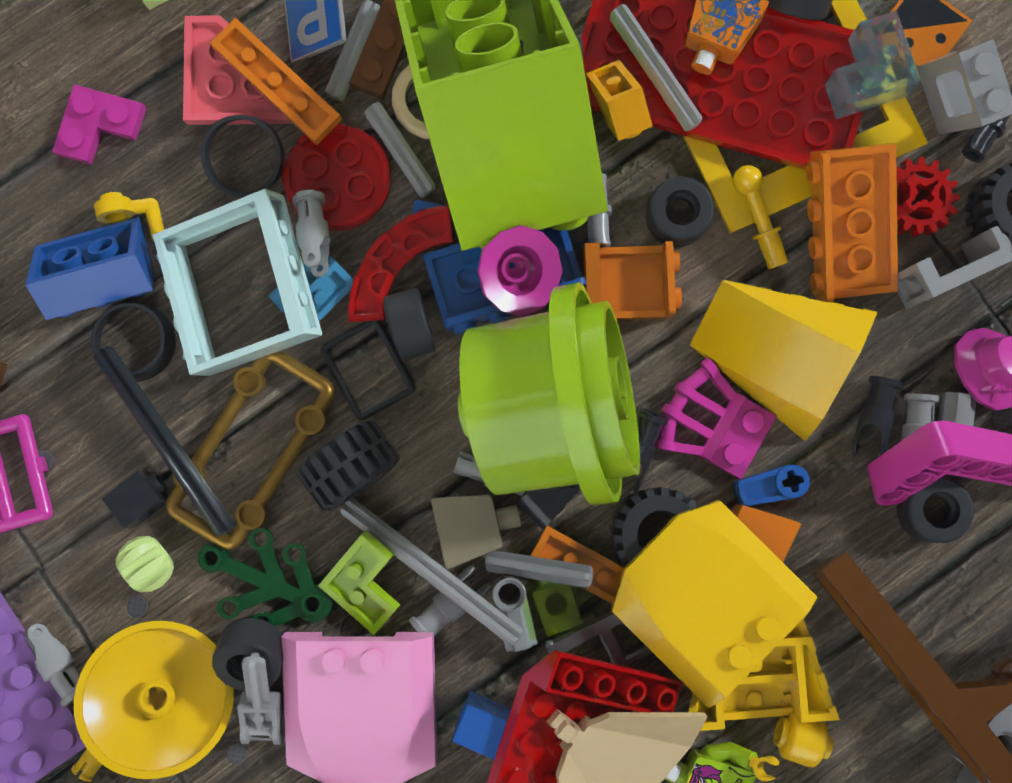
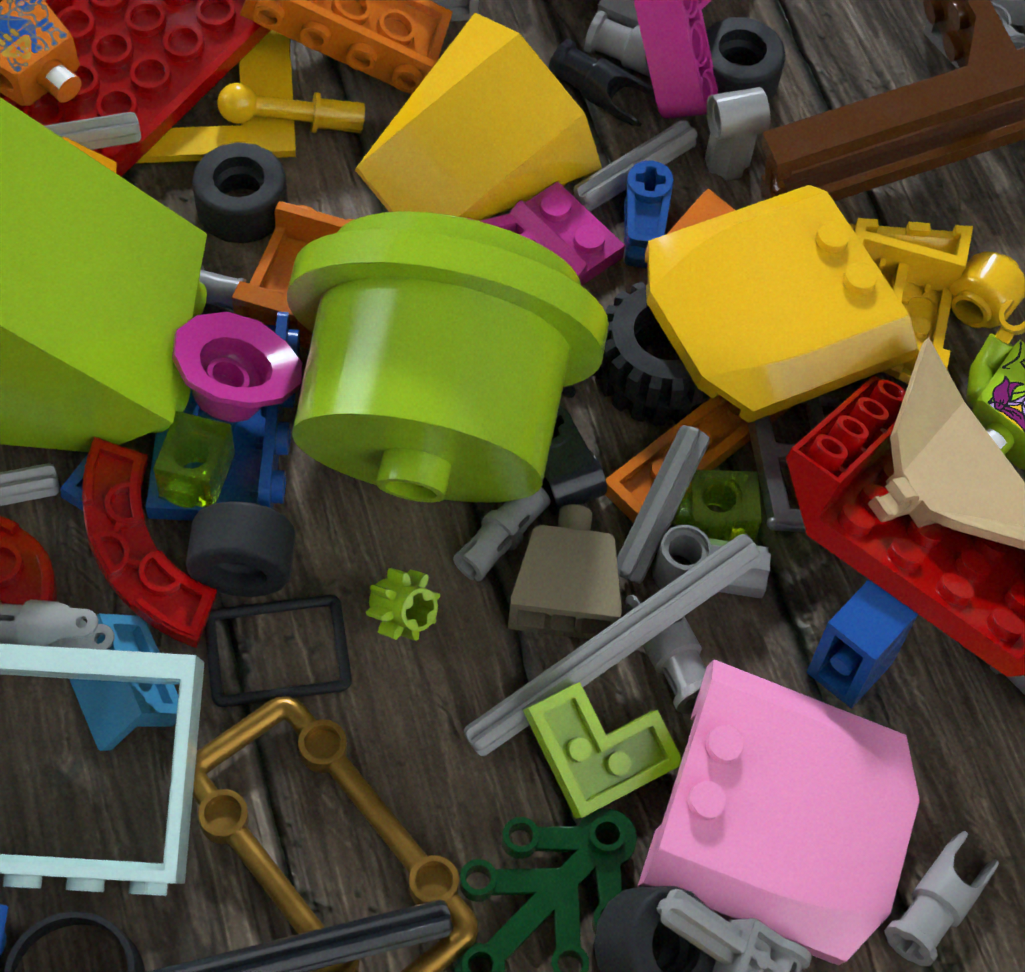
camera: 75 degrees left, 25 degrees down
(347, 465) = (419, 690): black tyre -> none
(414, 433) = (403, 604): none -> lime gear
(468, 279) = (190, 441): none -> clear neon green brick
(815, 464) = (613, 178): none -> light grey axle
(863, 527) = (734, 126): none -> light grey piece

